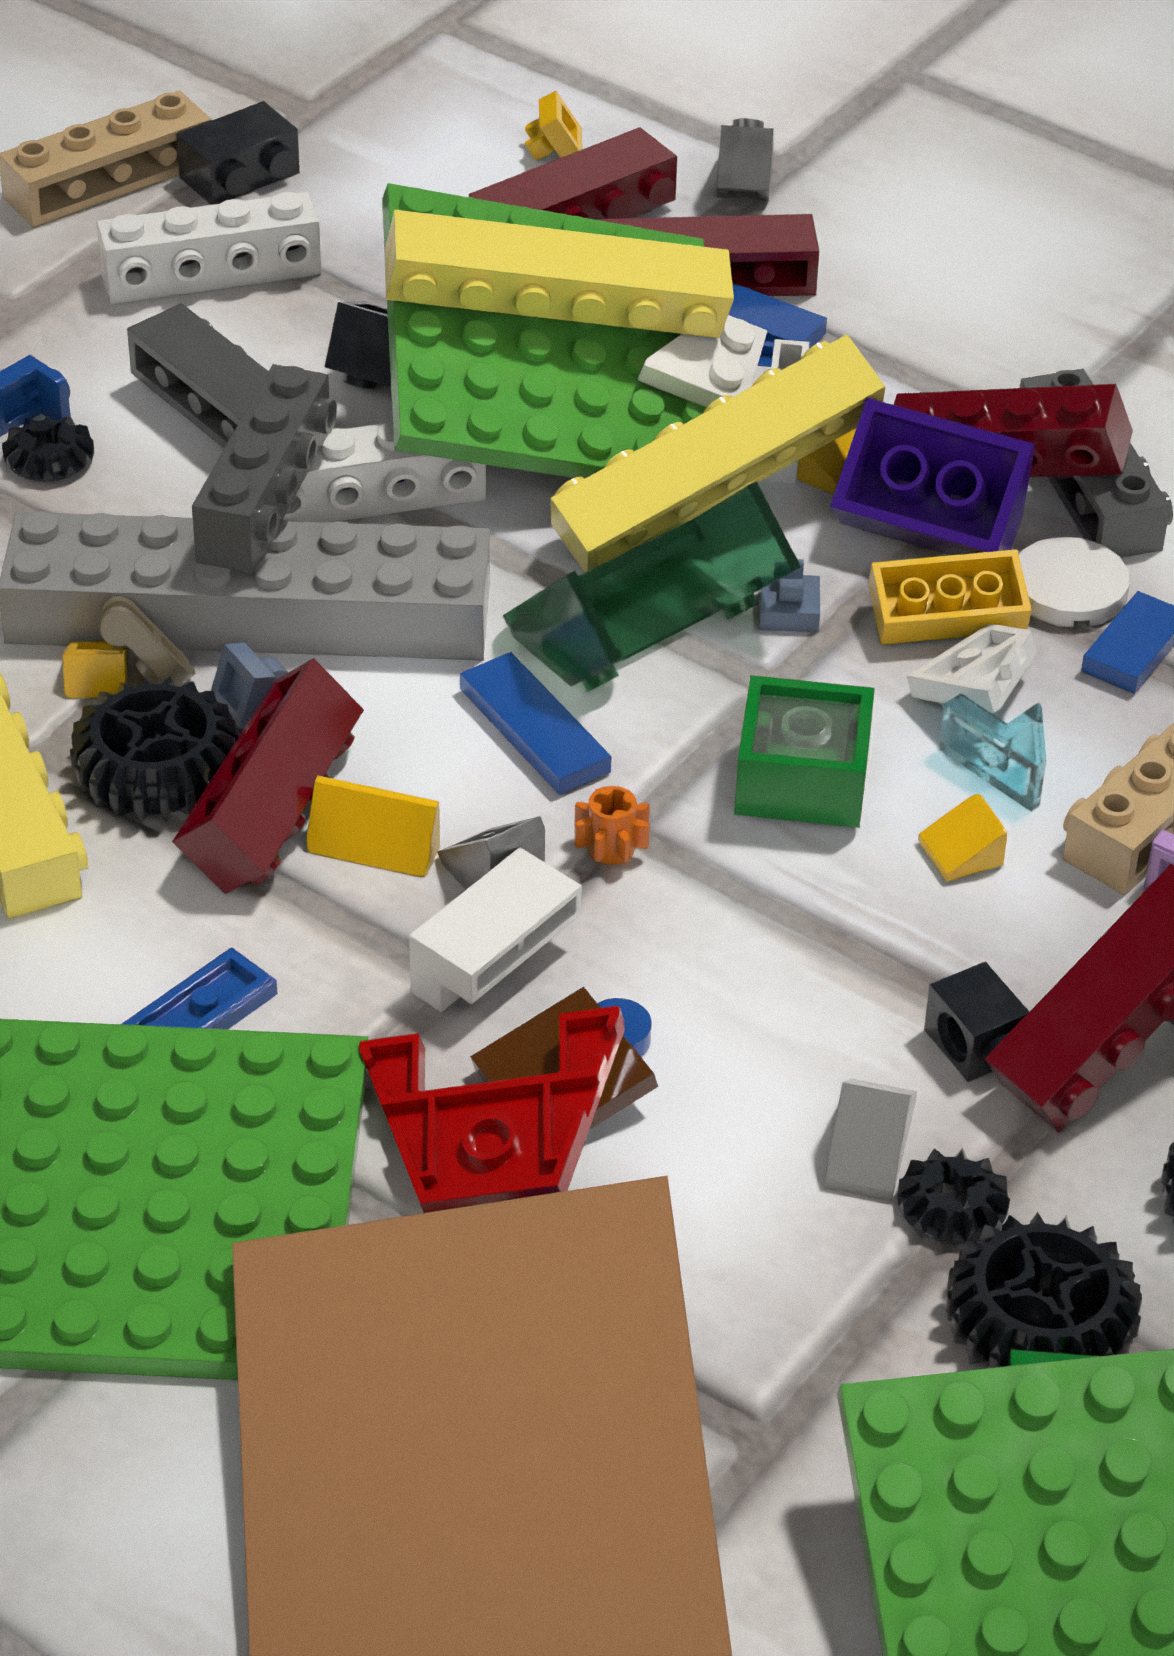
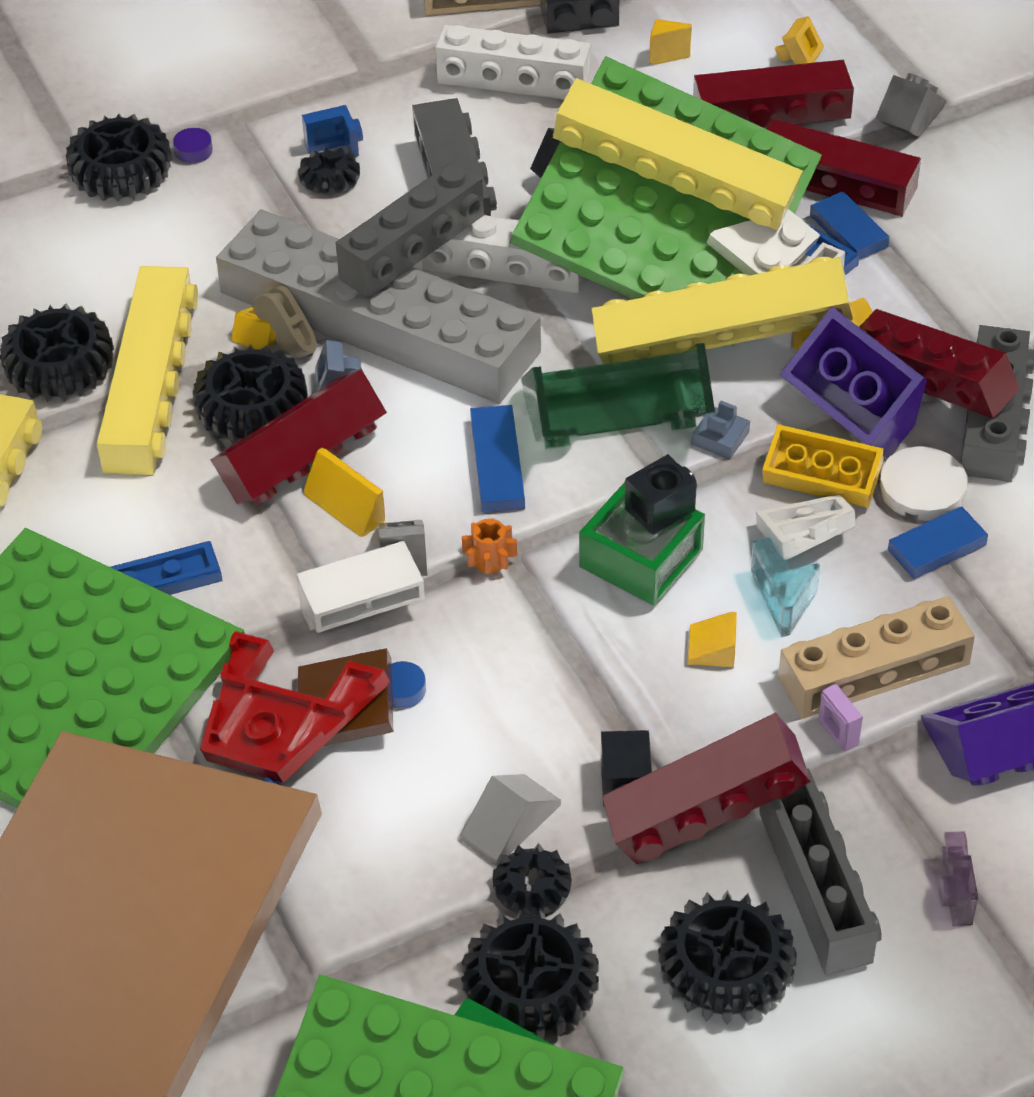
camera: 30 degrees right, 5 degrees up
(390, 163) = (669, 41): none -> yellow slope
(818, 677) = (660, 494): none -> black brick

